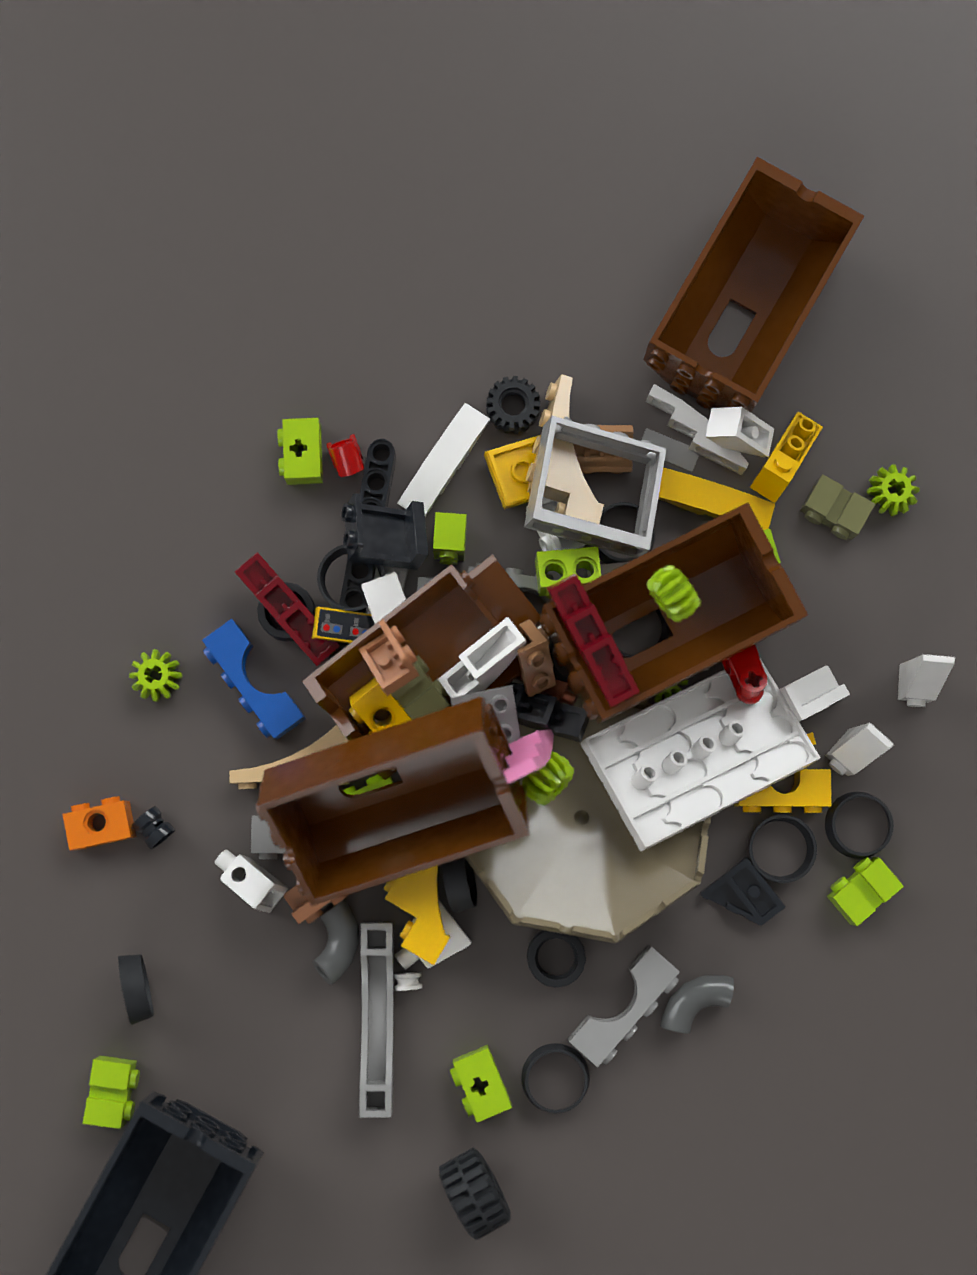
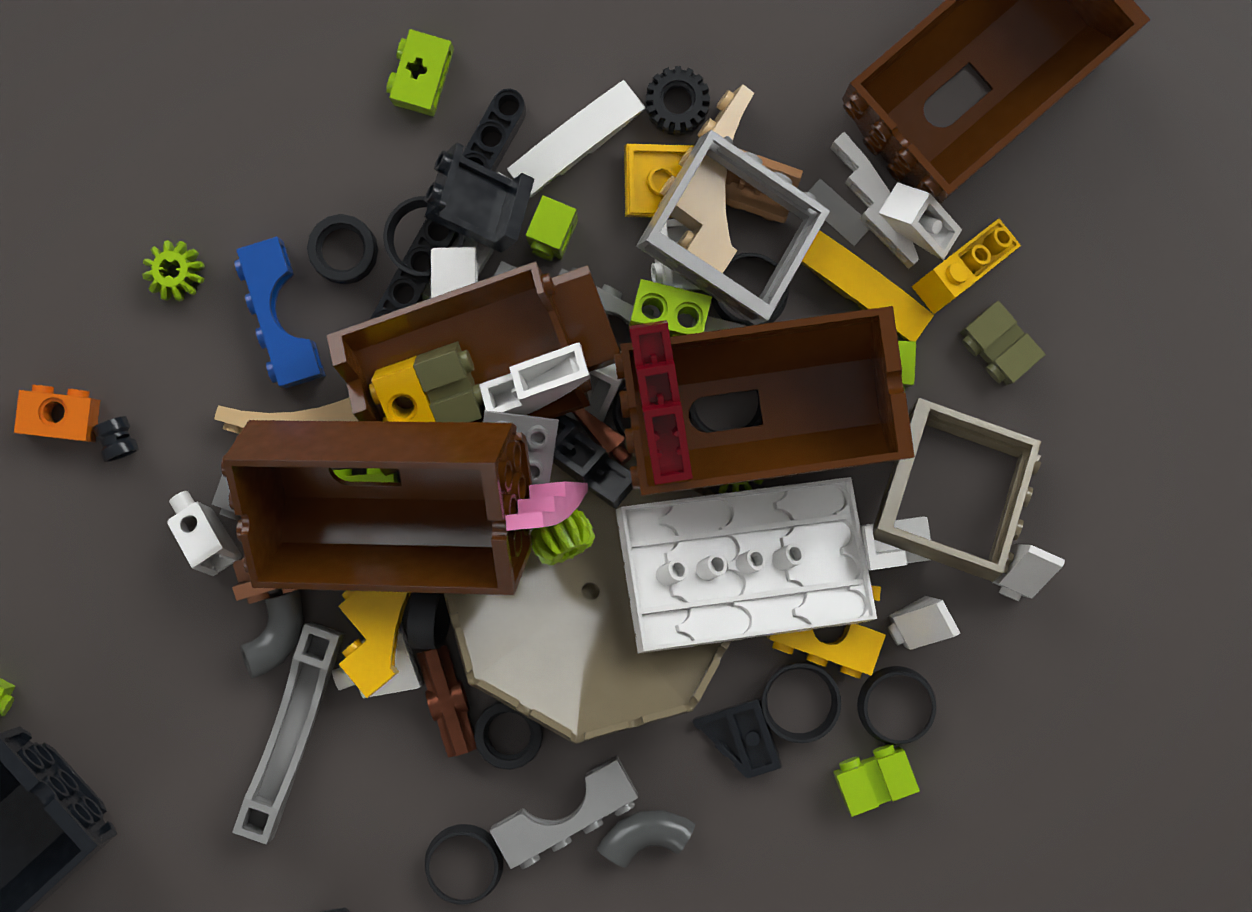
camera: 25 degrees right, 5 degrees up
(135, 988) = (36, 608): black tyre -> none
(284, 607) = (341, 246): dark red slope -> none
(340, 624) = (393, 285): tile -> none
(346, 456) = (468, 96): red piece -> none
(389, 660) = (429, 346): nougat bracket -> none
(407, 981) = (337, 703): white bush -> none
(482, 1065) = (388, 823): lime brick -> none
(496, 947) = (447, 701): none -> copper piece
(535, 659) = (595, 400): medium nougat bracket -> none
(673, 593) = (768, 381): lime gear -> none
(744, 669) = (831, 491): red piece -> none
(894, 625) = (1018, 496): none -> dark tan window
(896, 501) = (1078, 334): lime gear -> none

